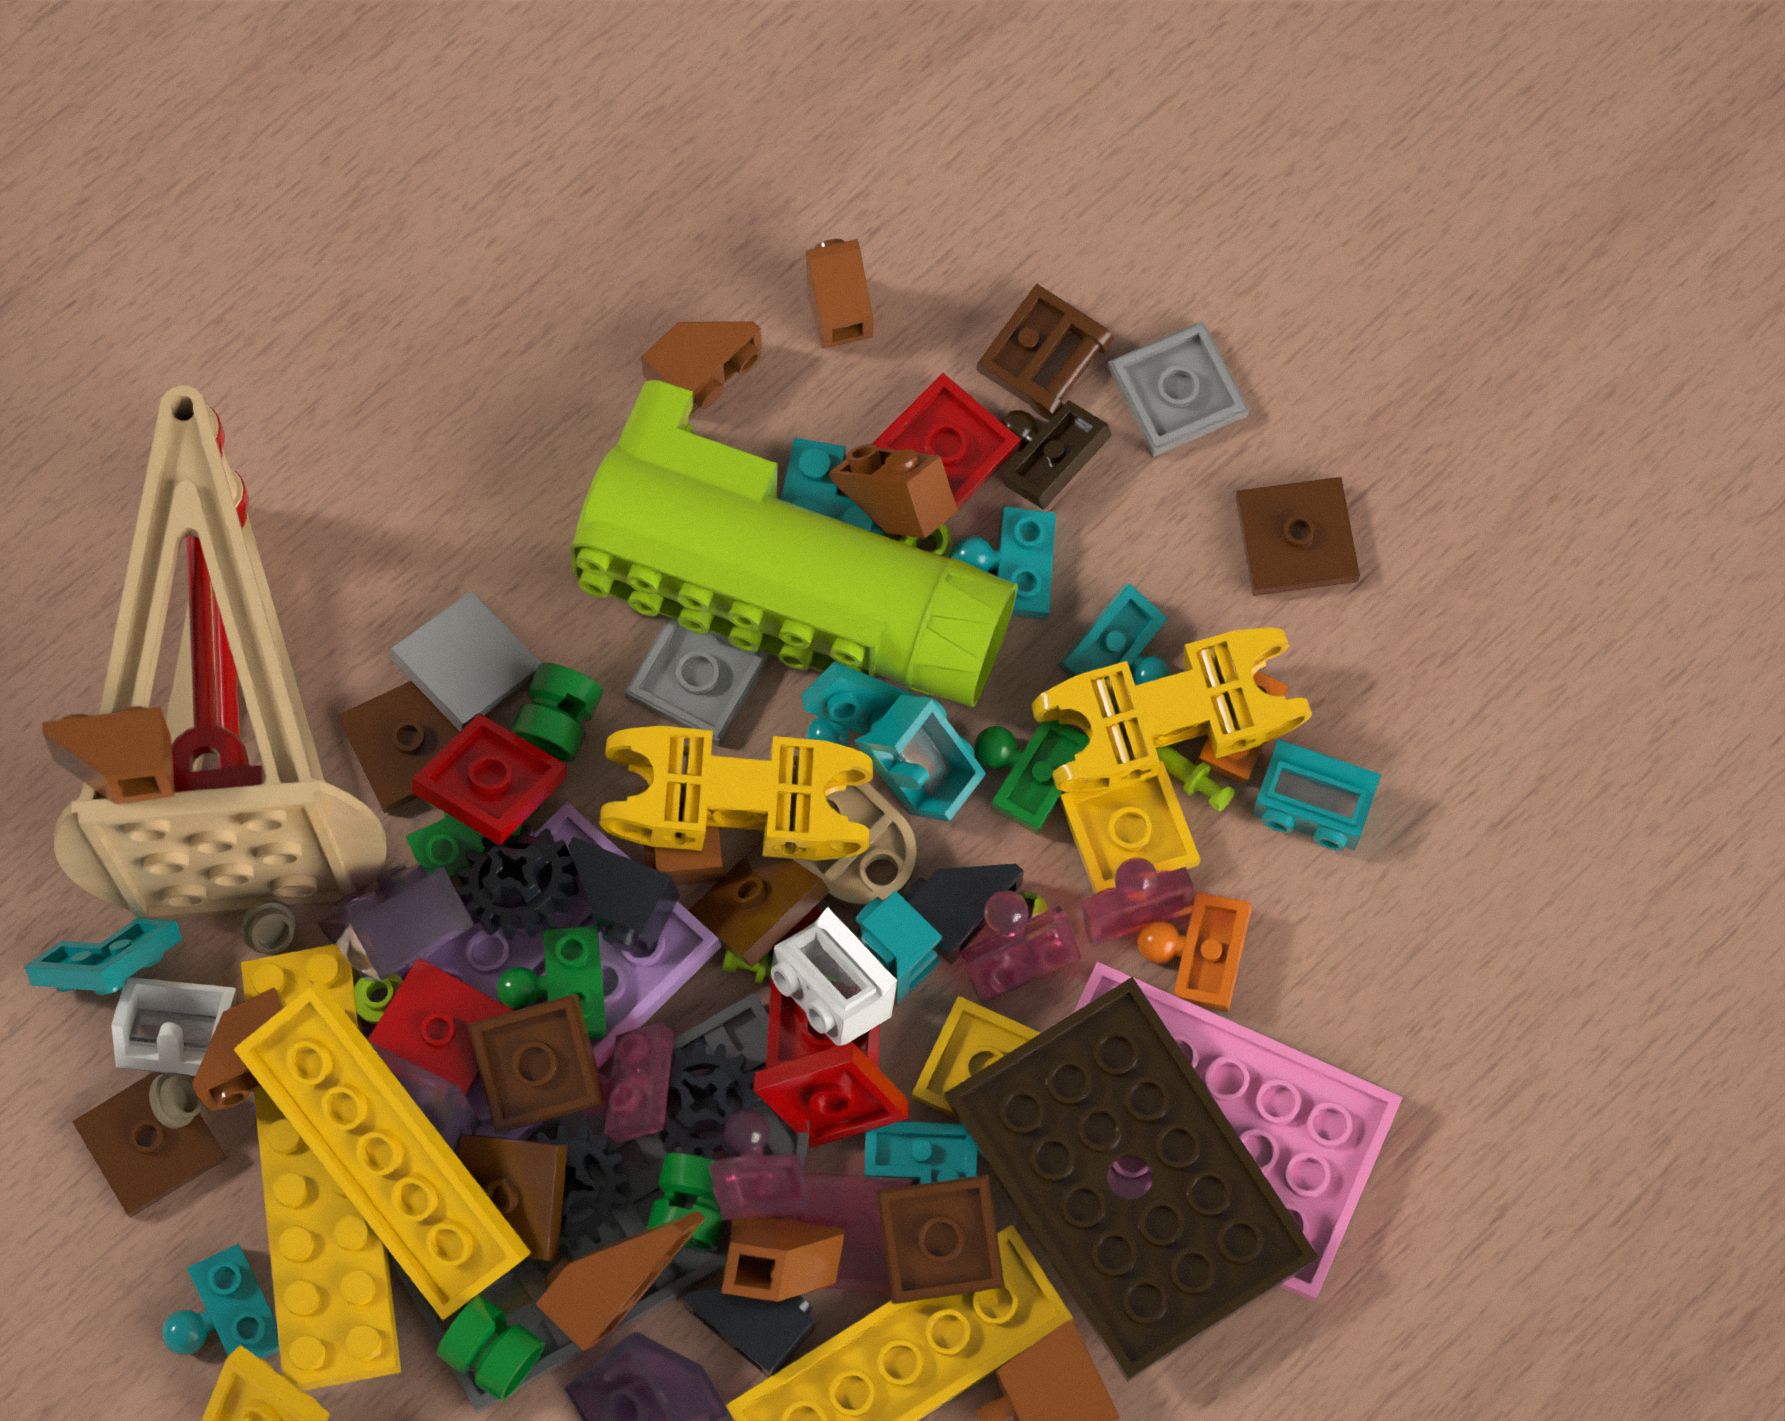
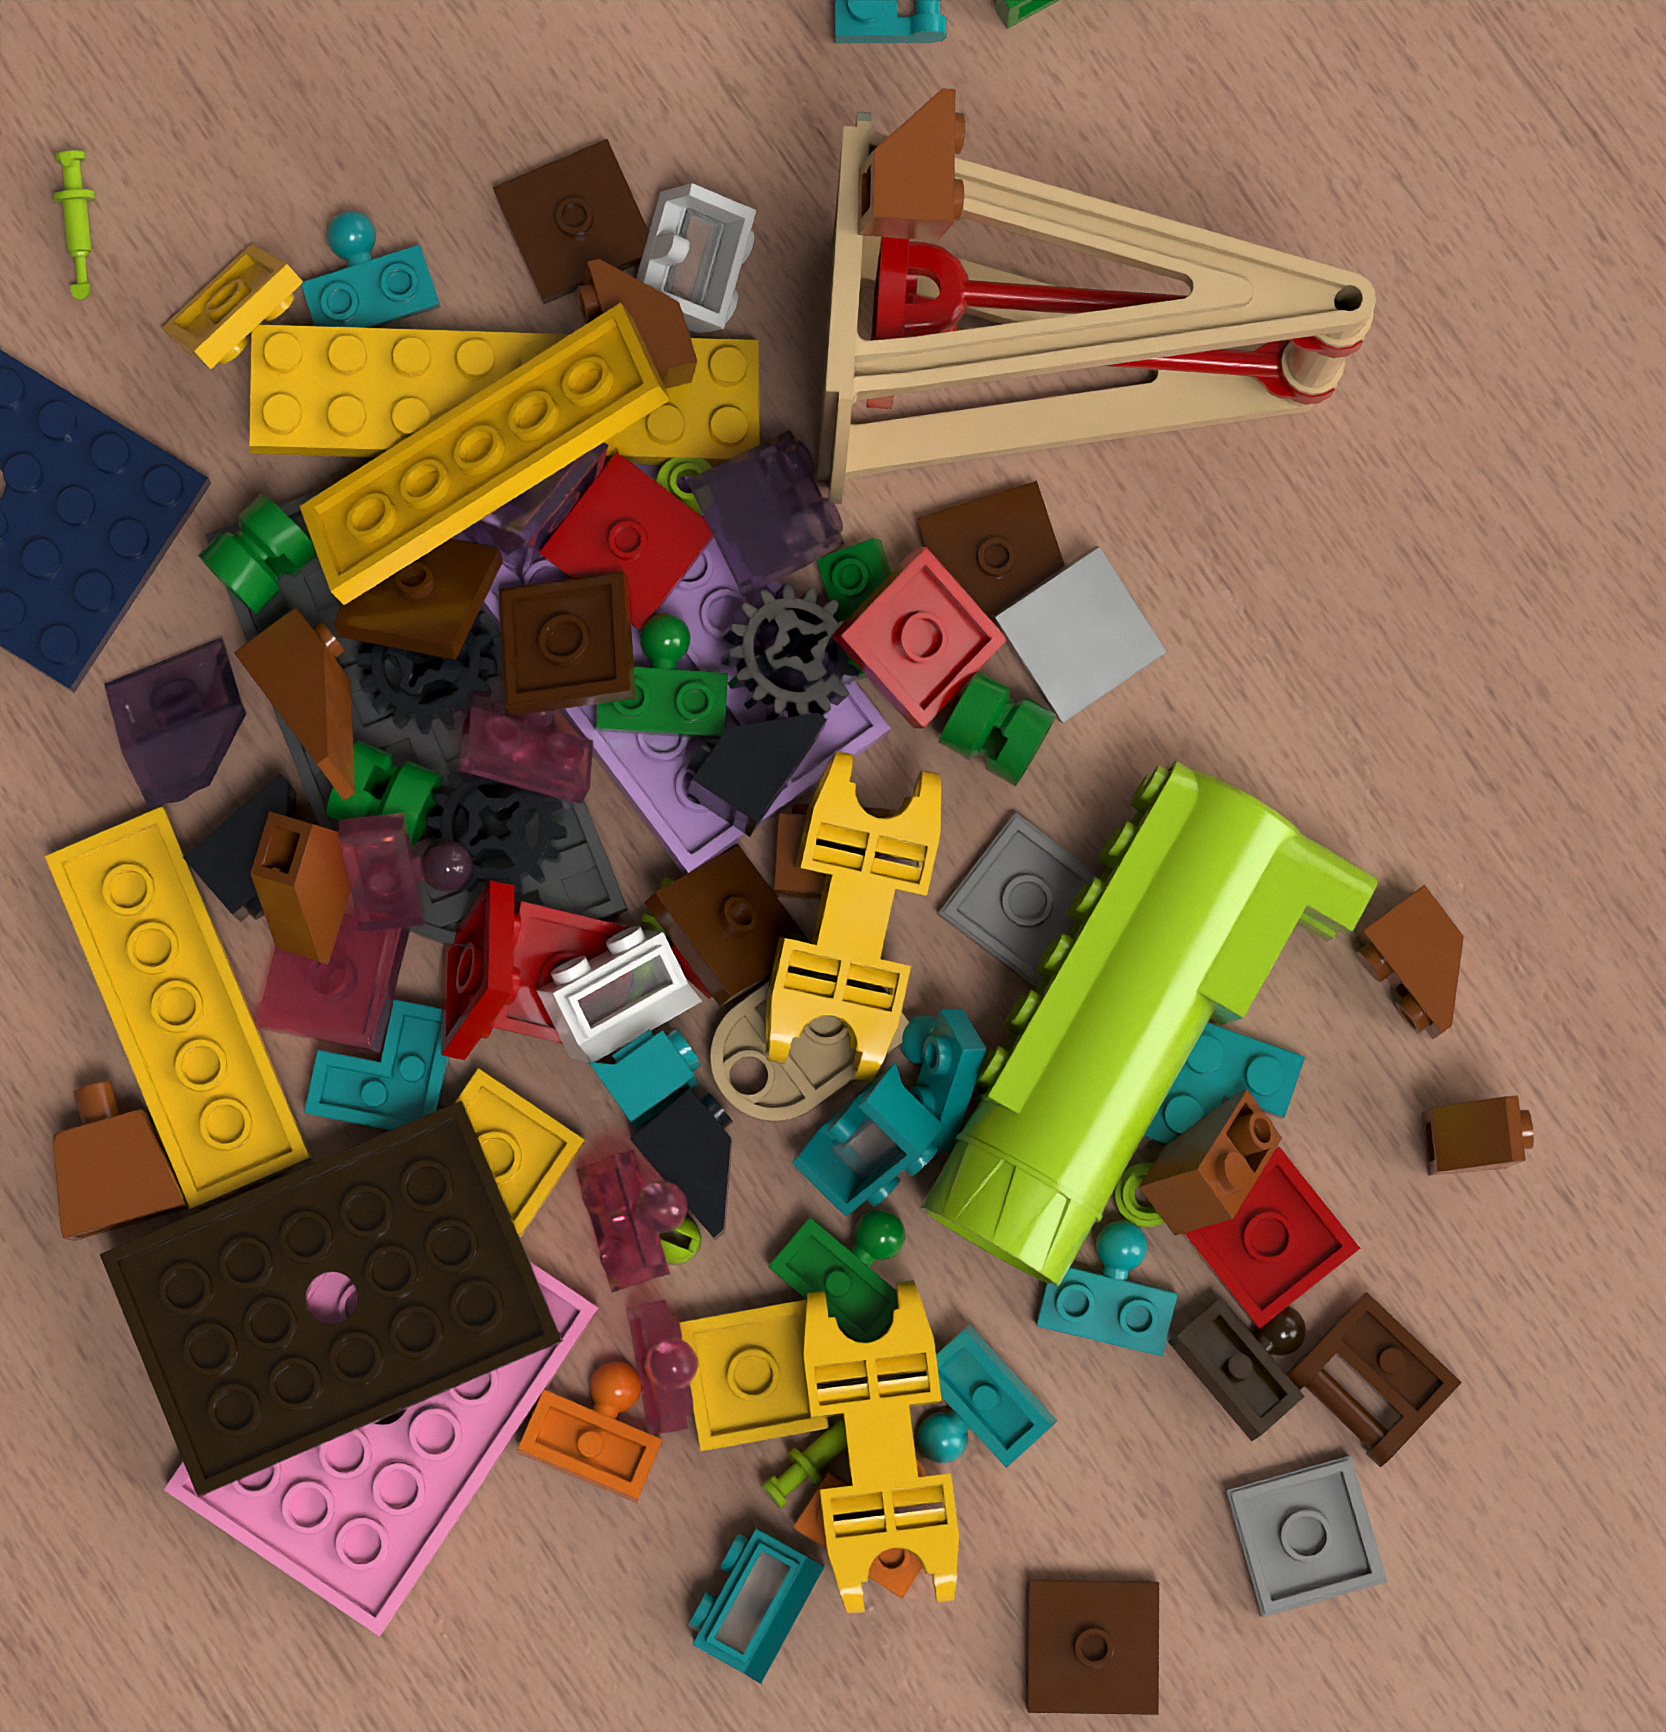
camera: 100 degrees right, 10 degrees up
(106, 964) = (769, 188): teal plate -> none
(174, 1099) = (605, 240): dark tan plate -> none
(268, 927) = (794, 375): dark tan plate -> none
(940, 1239) = (299, 1070): reddish brown plate -> none

